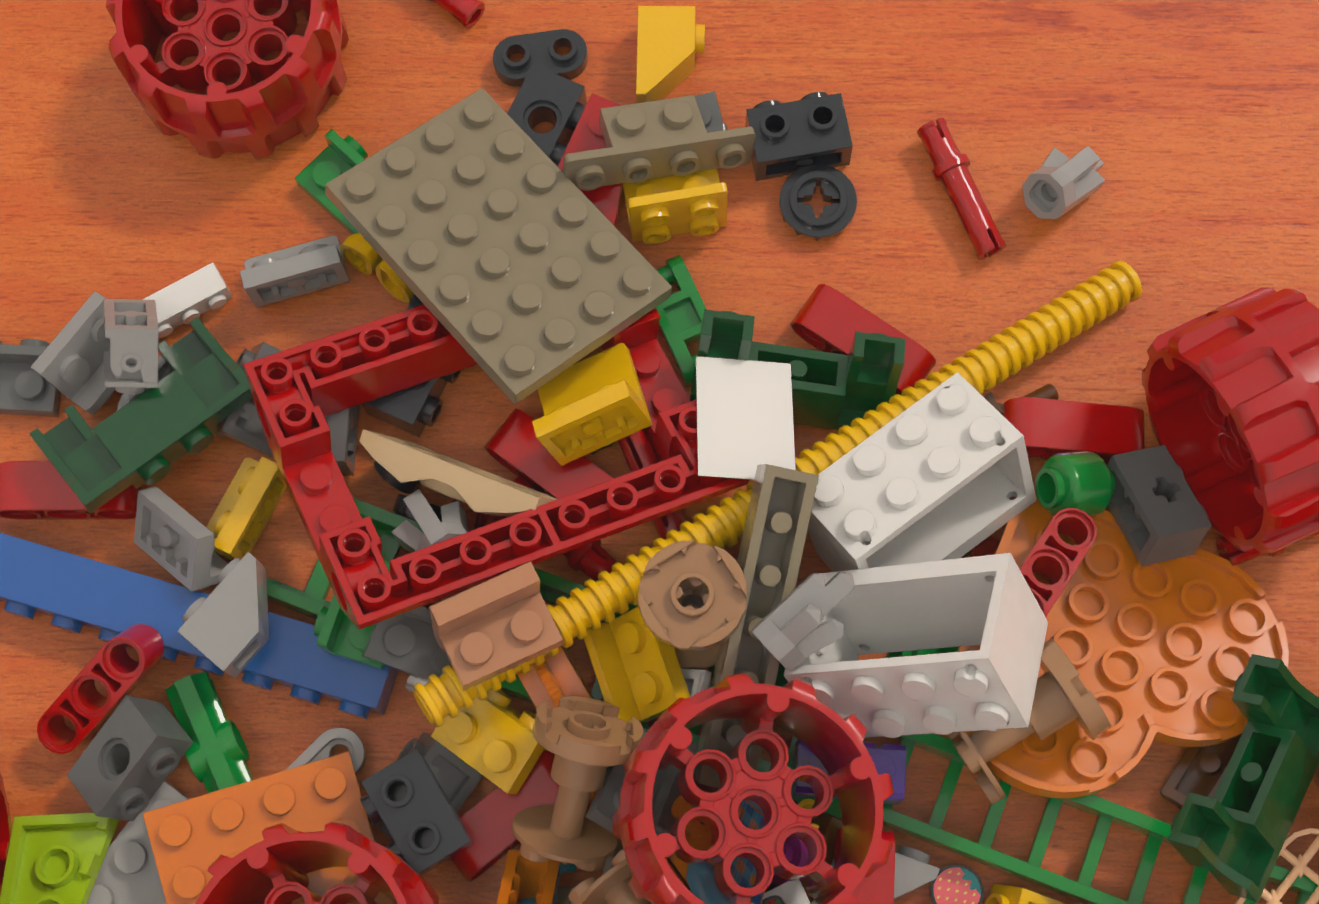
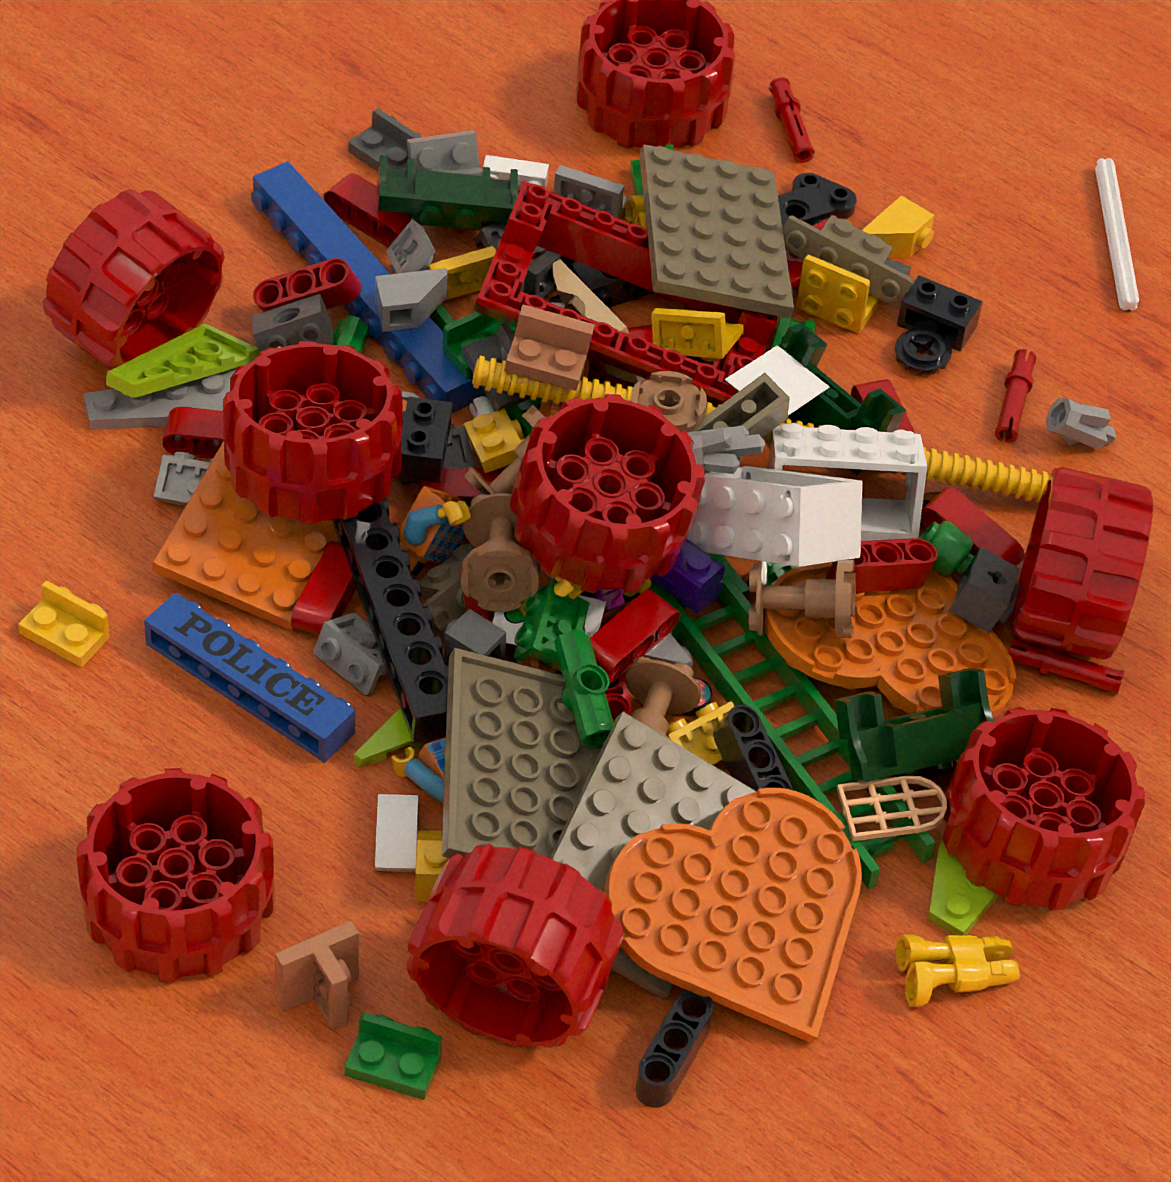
camera: 30 degrees right, 25 degrees down
(133, 345) = (471, 150): light grey hinge -> none

